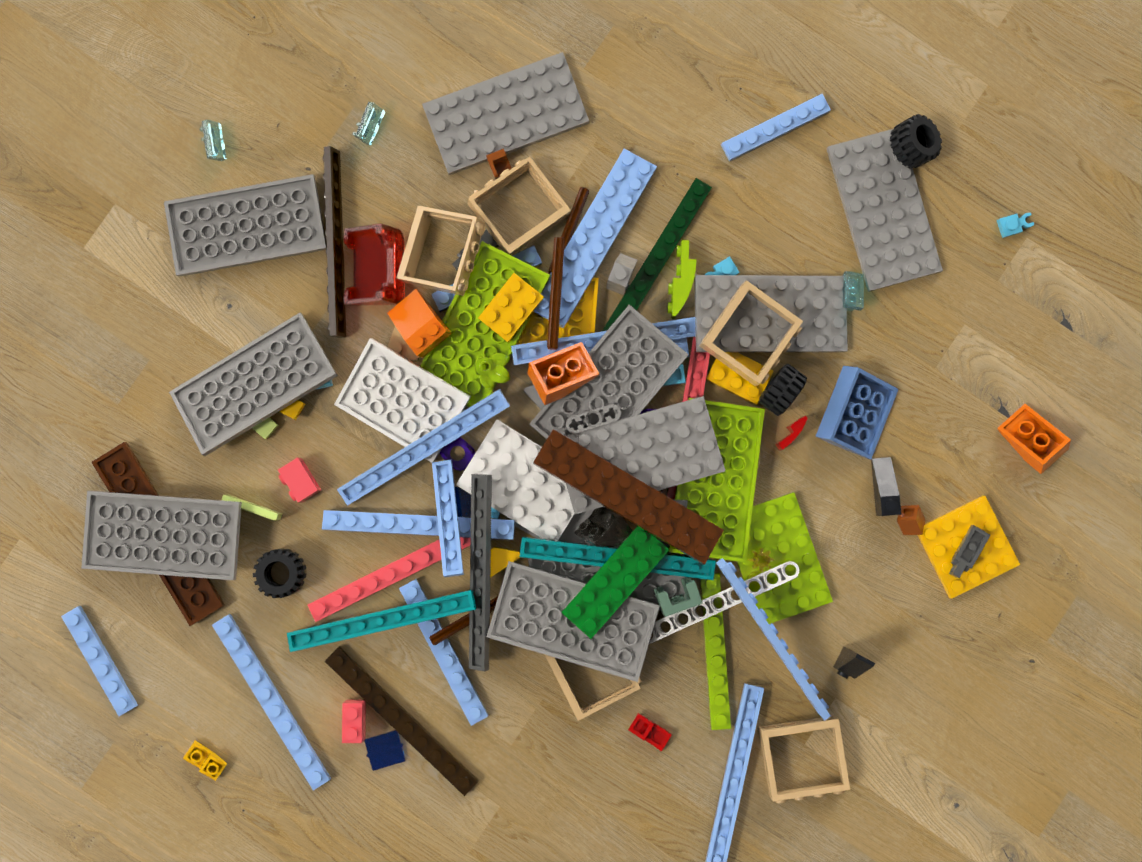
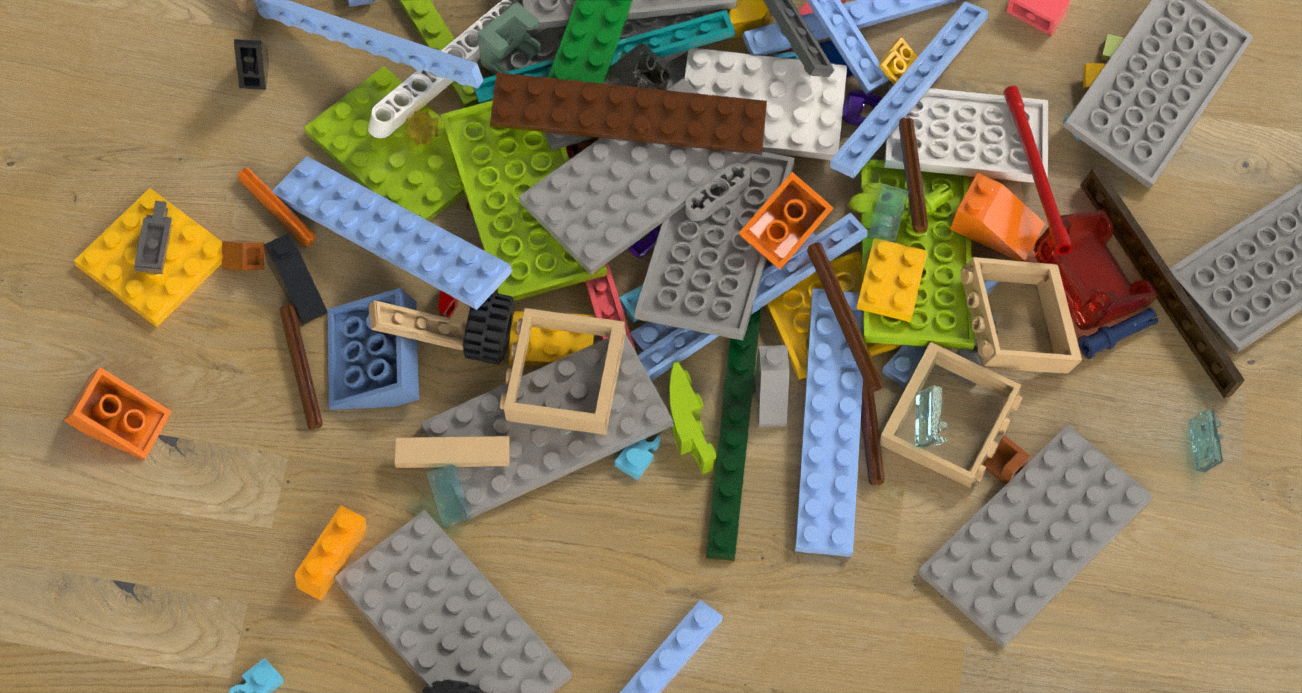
camera: 150 degrees right, 25 degrees down
(389, 285) = (1057, 230): none -> red piece
(391, 219) = (1108, 336): none -> dark blue pin
(420, 476) = (897, 60): none -> yellow slope
(459, 354) = (932, 202): none -> lime pin
(459, 374) = (913, 175): none -> reddish brown axle
(491, 352) = (887, 213): none -> clear light blue plate
(538, 201) = (928, 412): none -> clear light blue plate
(817, 484) = (392, 232): none -> light blue plate
(829, 409) = (416, 325): none -> tan tile
(840, 316) = (445, 451): none -> tan tile
(874, 549) = (276, 206): none -> orange axle
(904, 424) = (301, 367): none -> reddish brown axle
(940, 284) = (330, 553): none -> light orange brick

